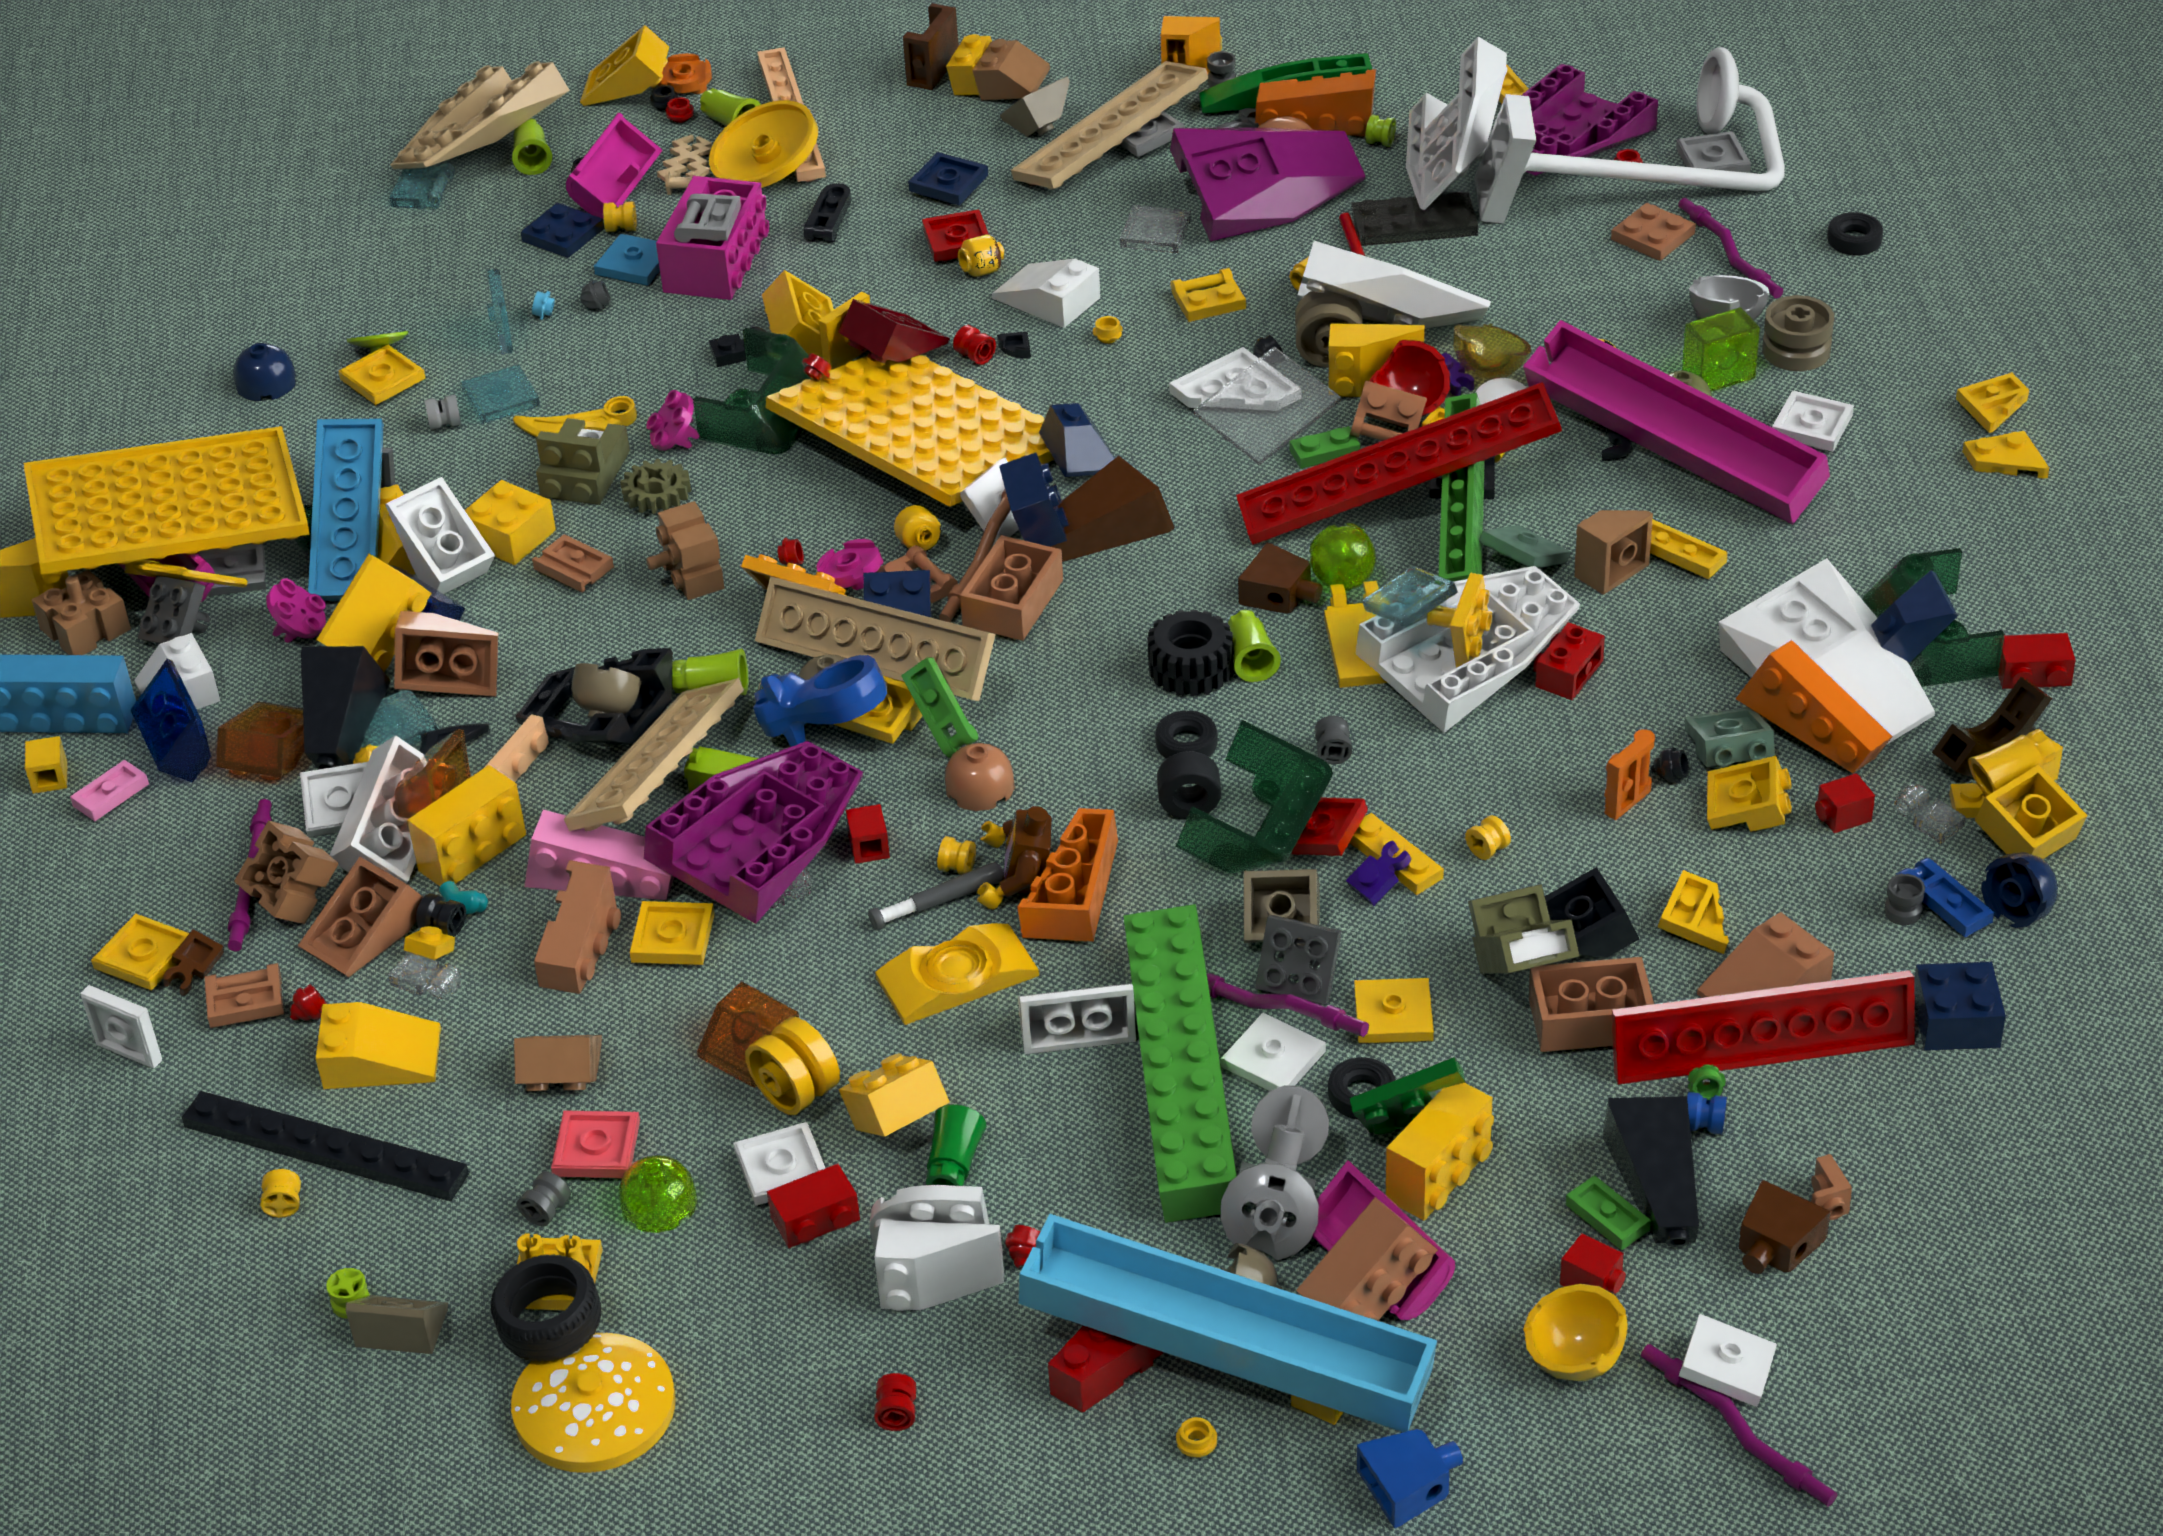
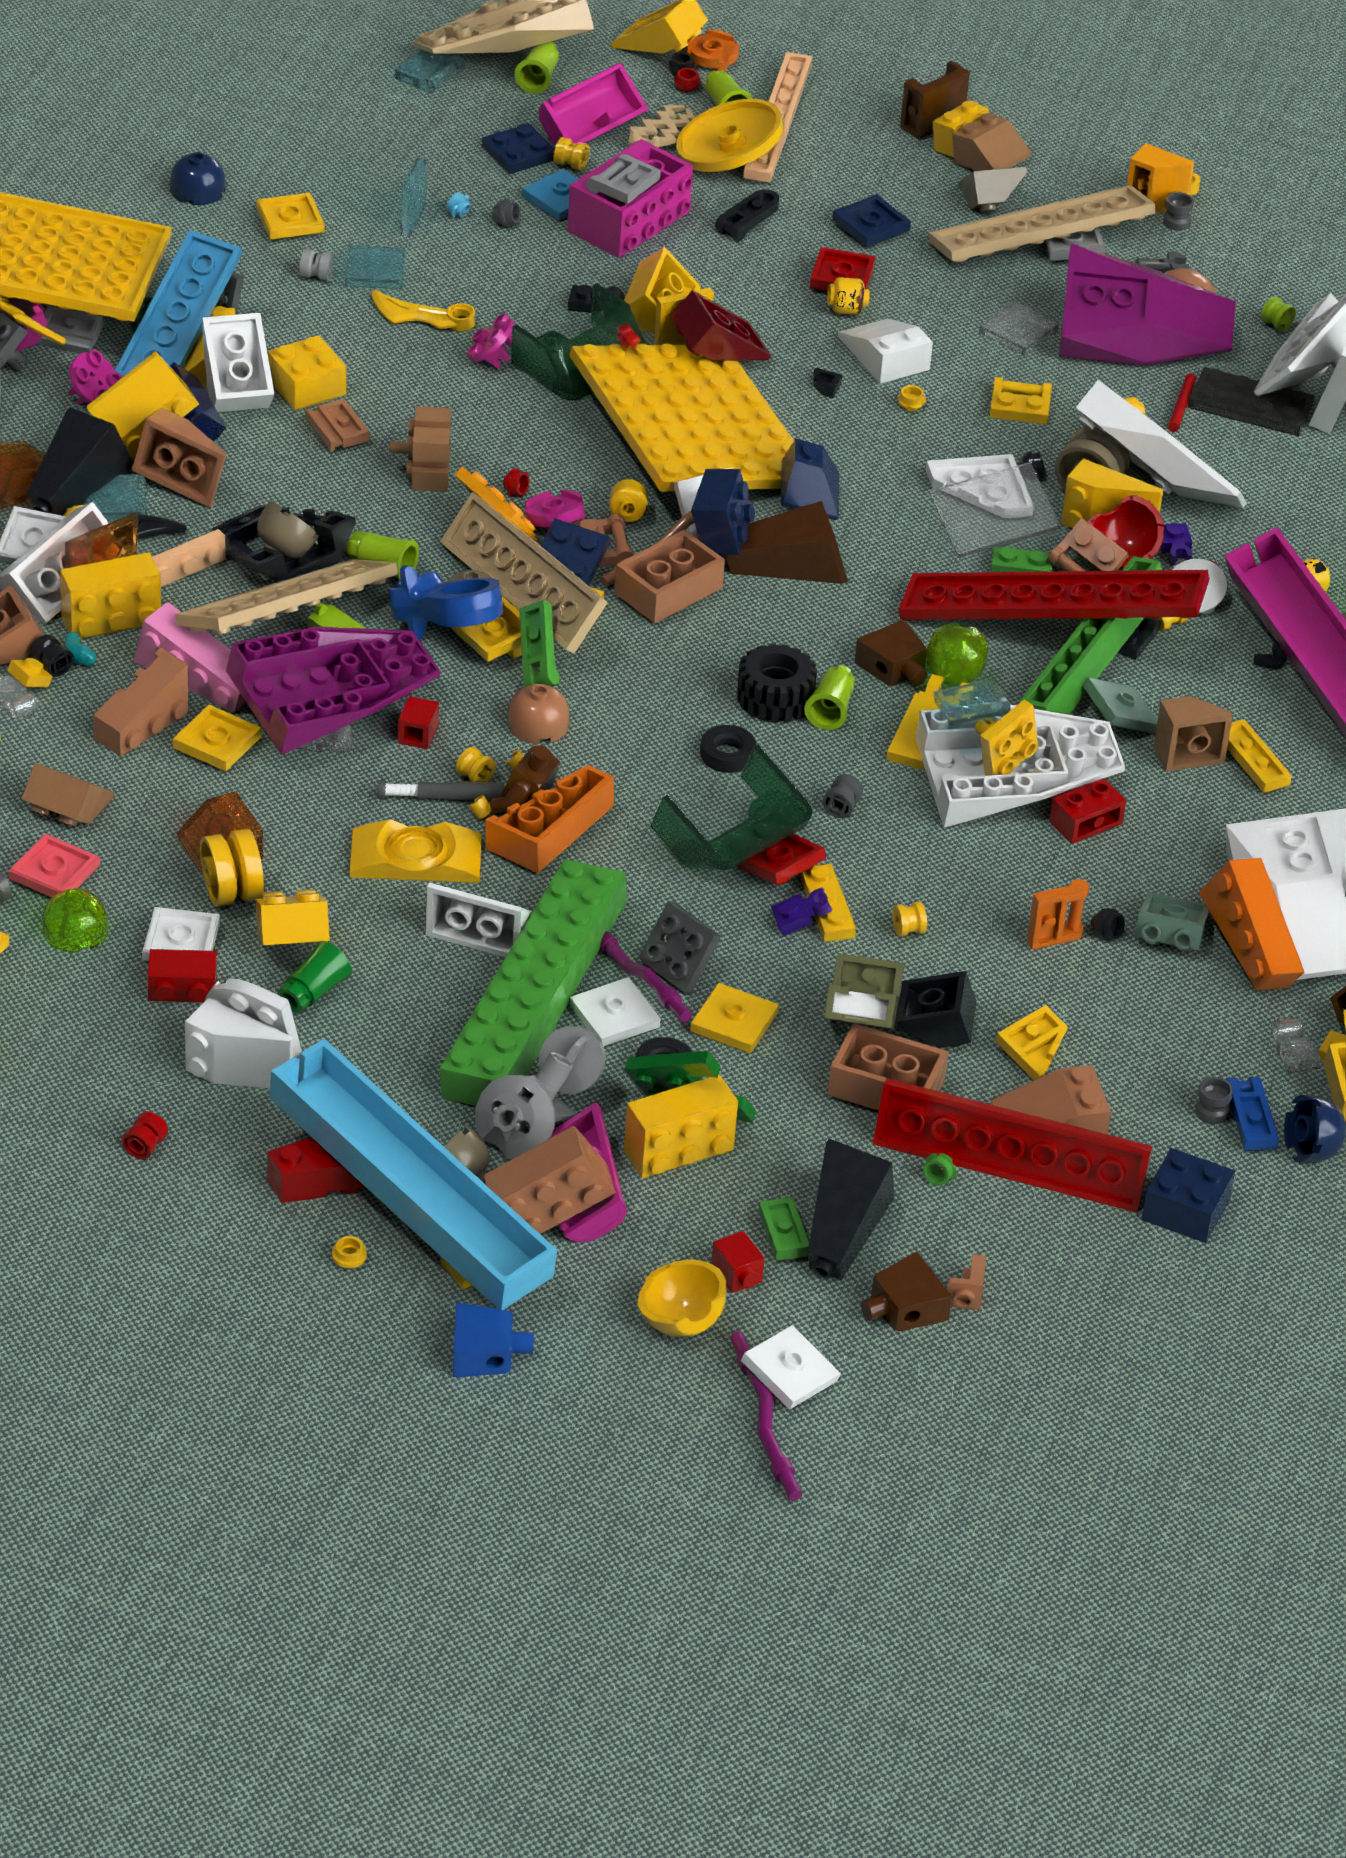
camera: 20 degrees right, 0 degrees up
(376, 342) = (304, 186): lime dish -> none
(580, 461) = (398, 344): olive brick -> none
(655, 486) = (445, 387): olive gear -> none
(974, 344) = (788, 369): red wheel -> none
(1188, 769) = (703, 772): black tyre -> none
(1243, 90) = (1232, 246): green wedge -> none
(1282, 894) = (705, 896): dark tan slope -> none
(1322, 103) = (1237, 270): orange wedge -> none
(1489, 350) = (1215, 531): clear yellow cylinder -> none
(1706, 1112) = (917, 1189): blue wheel -> none
(1749, 794) = (1150, 971): yellow plate -> none
(1845, 803) = (1225, 1009): red brick -> none

